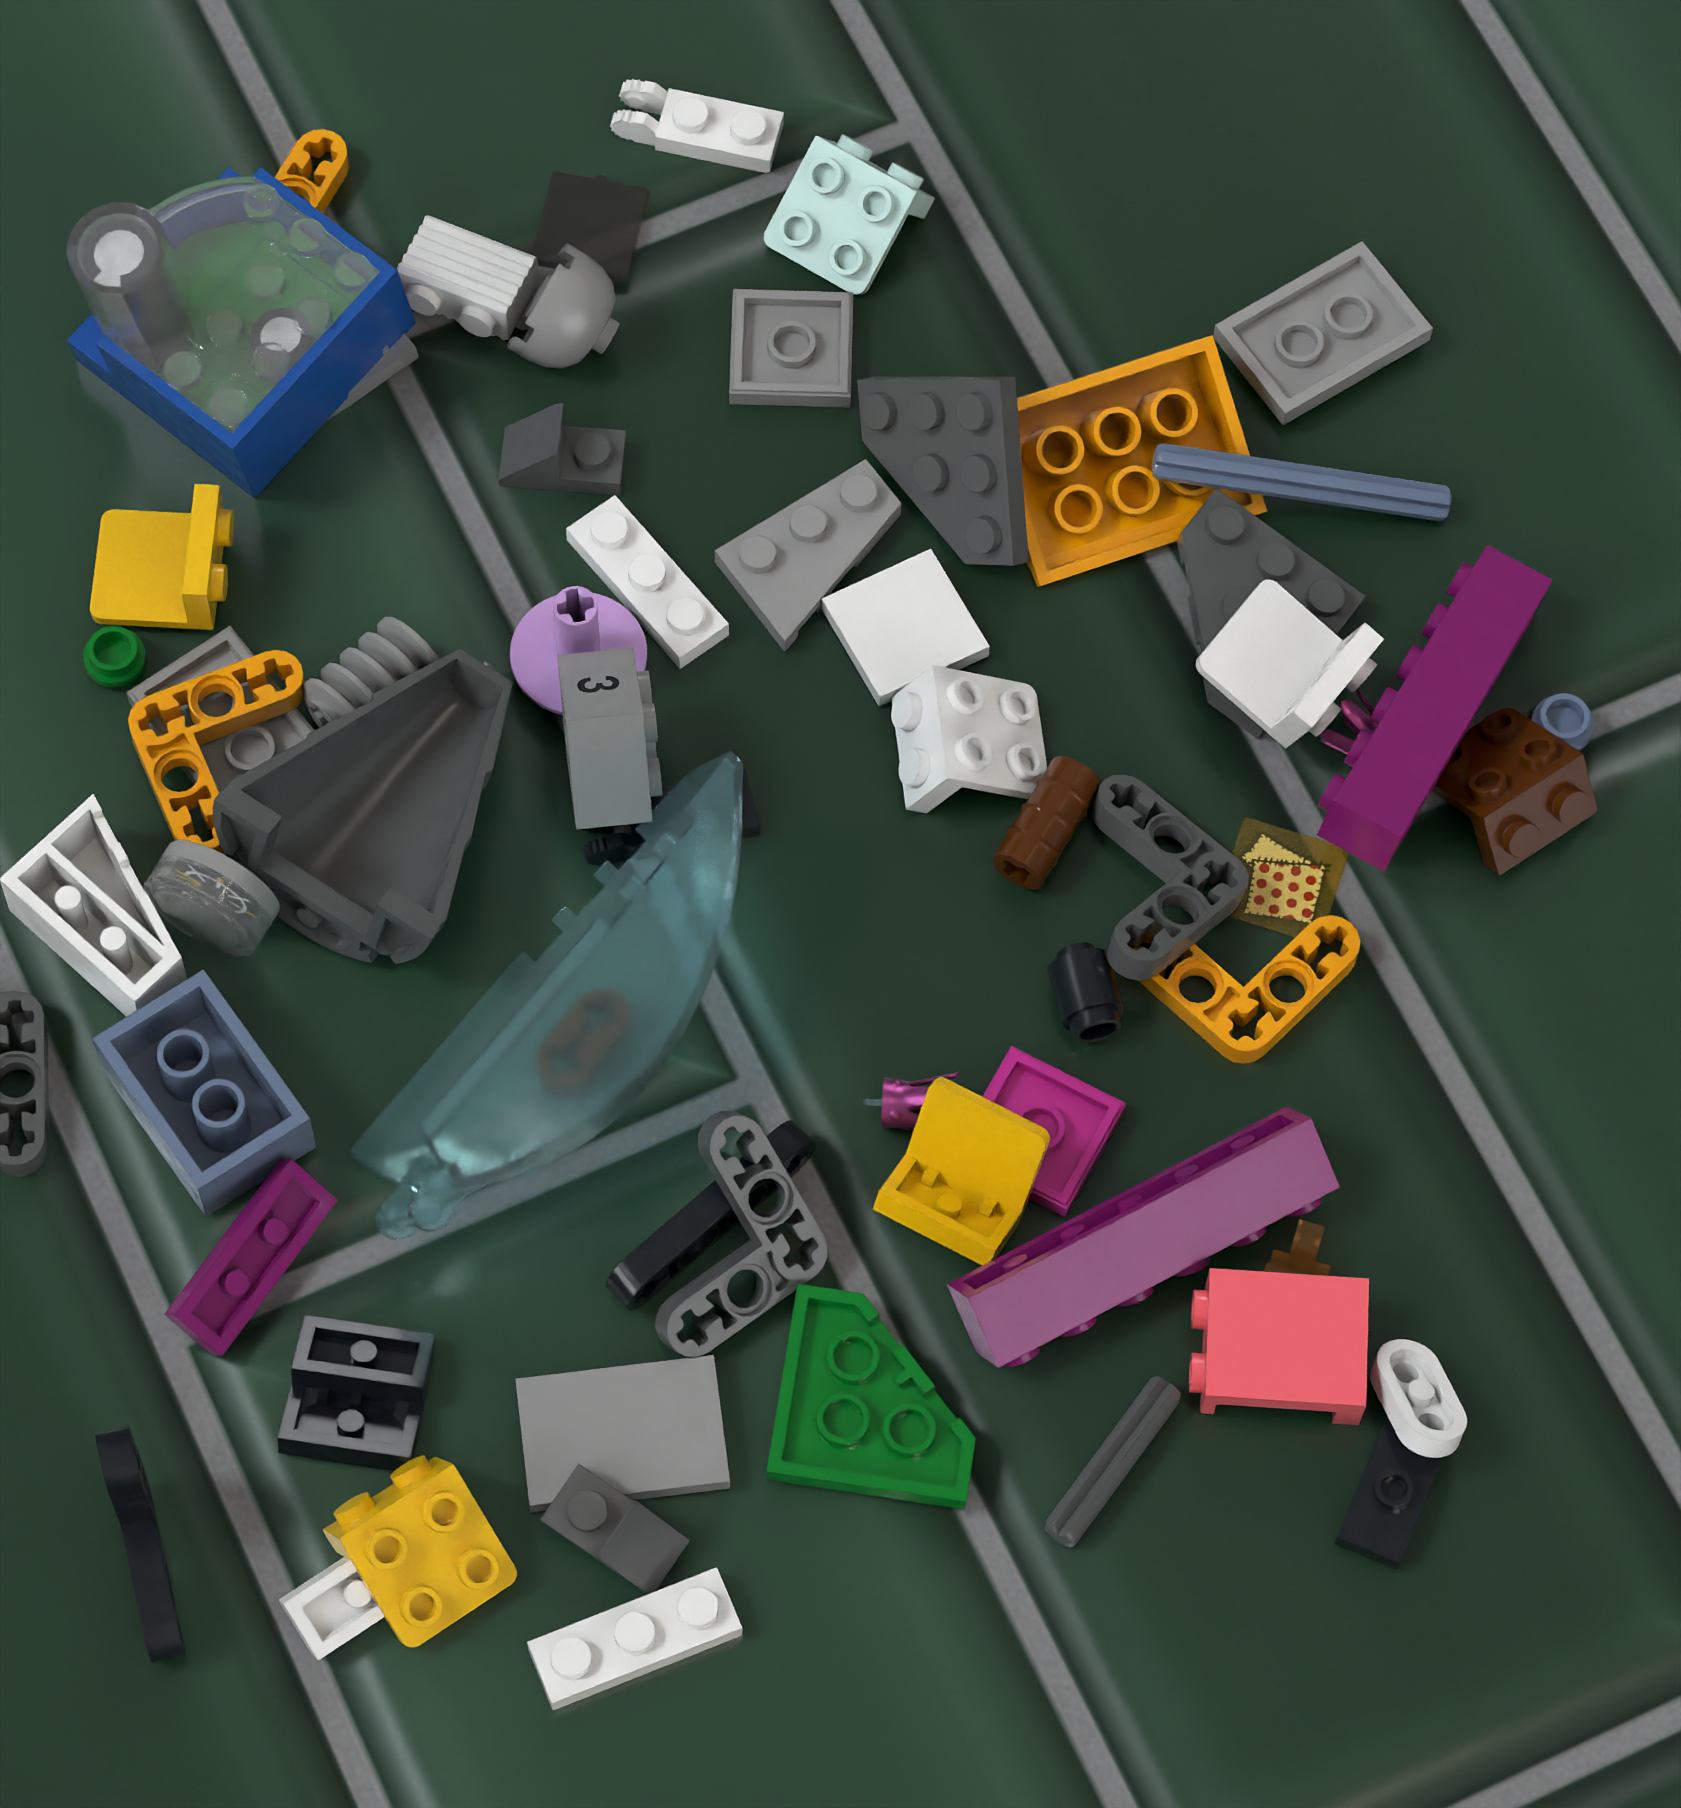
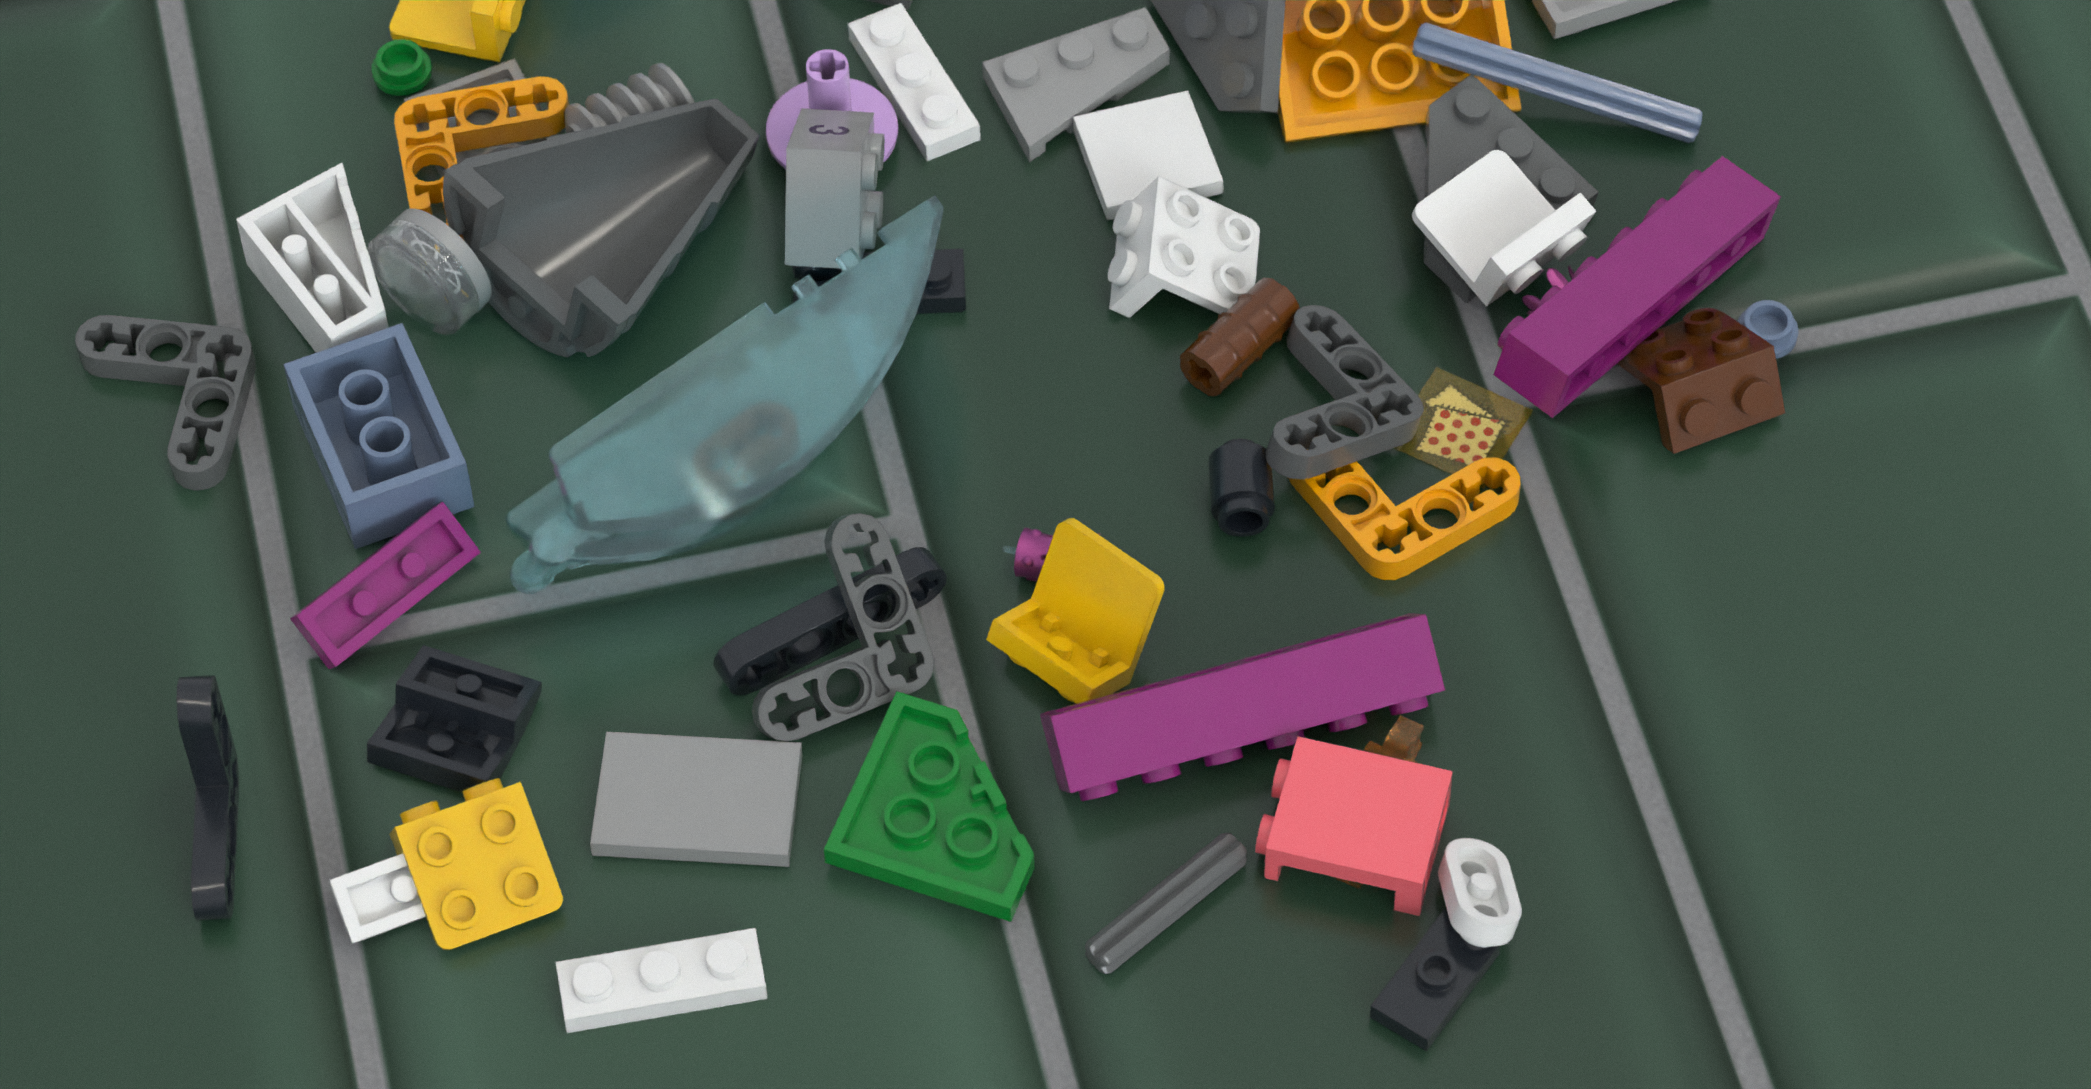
camera: 15 degrees right, 10 degrees down
(615, 1529) = (665, 876): dark grey slope -> none
(1070, 1110) = (1196, 606): dark pink tile -> none

